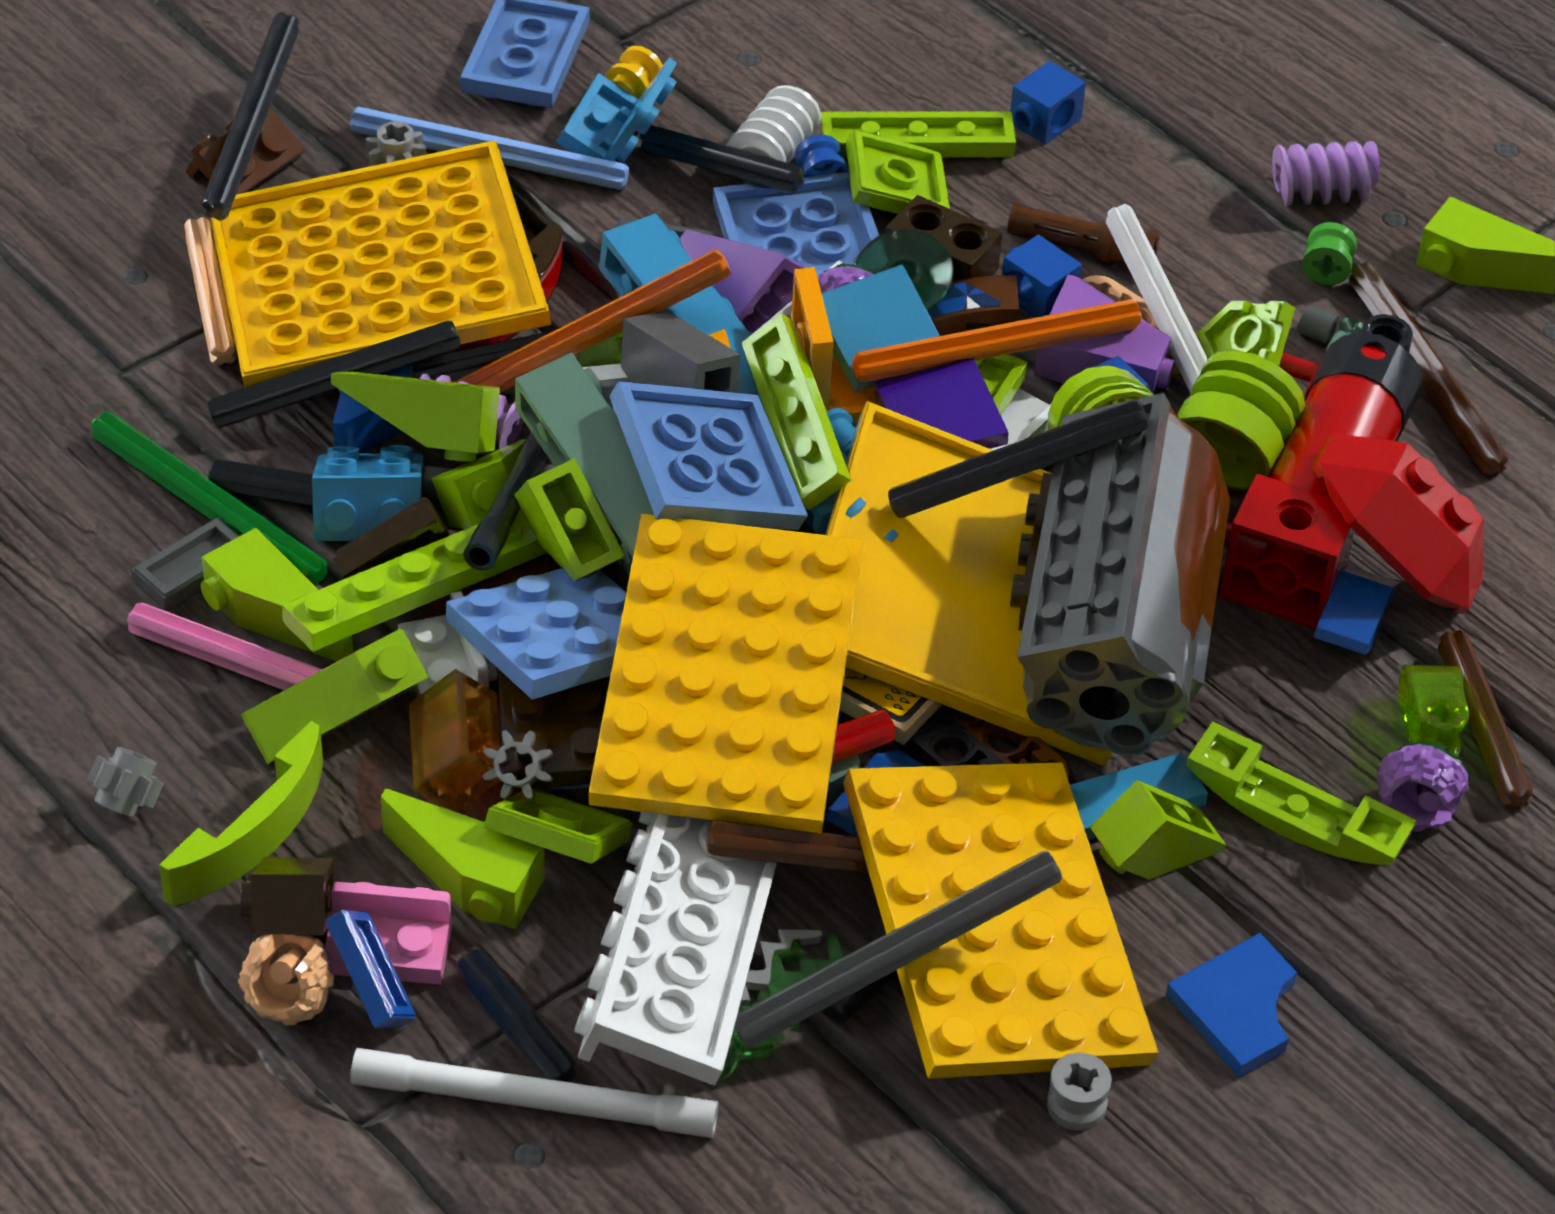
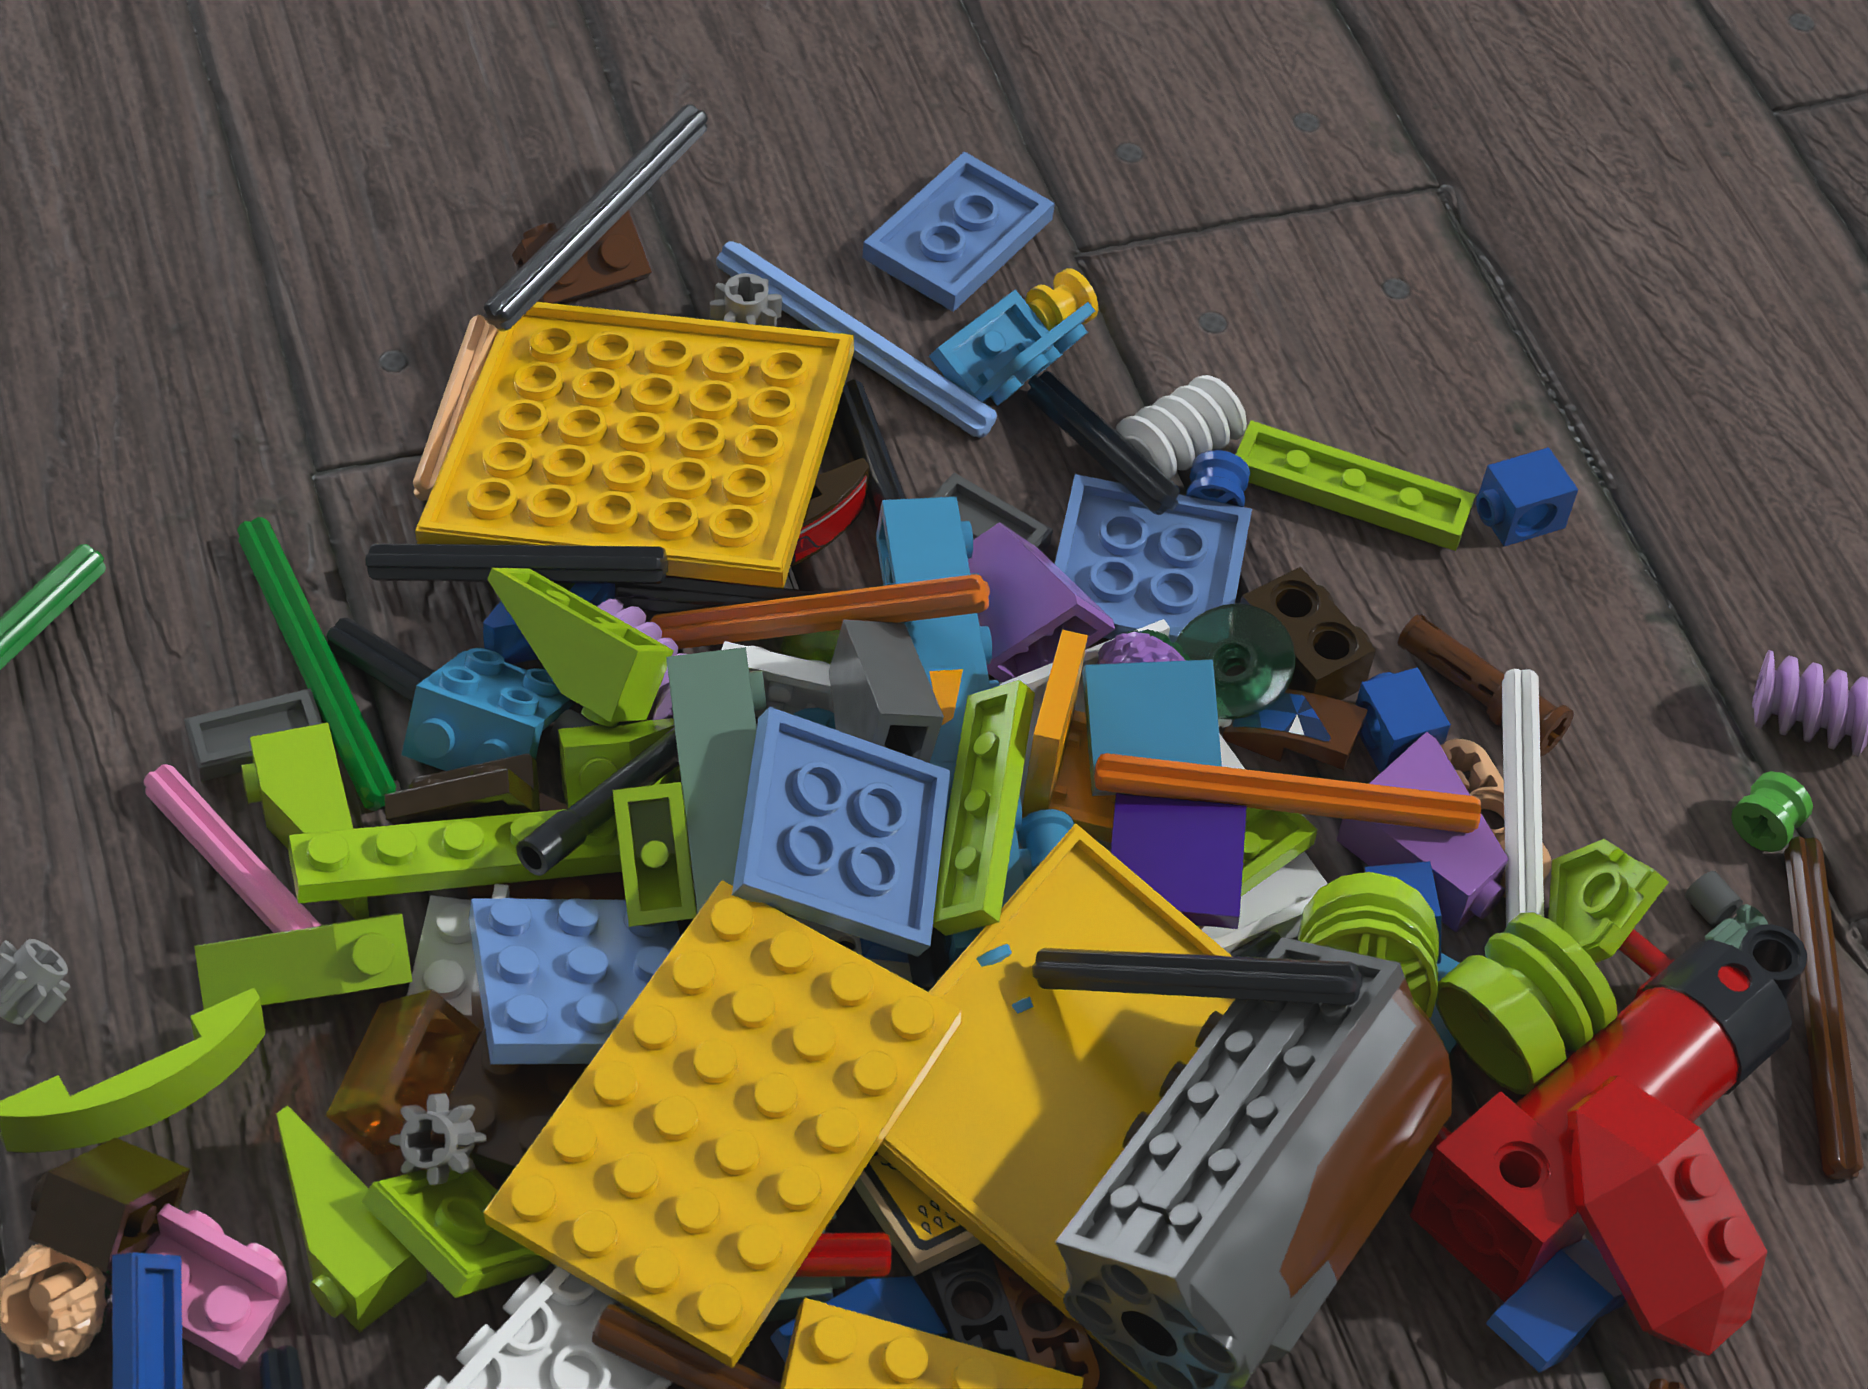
camera: 20 degrees right, 5 degrees up
(893, 172) = (1294, 526): lime tile -> none

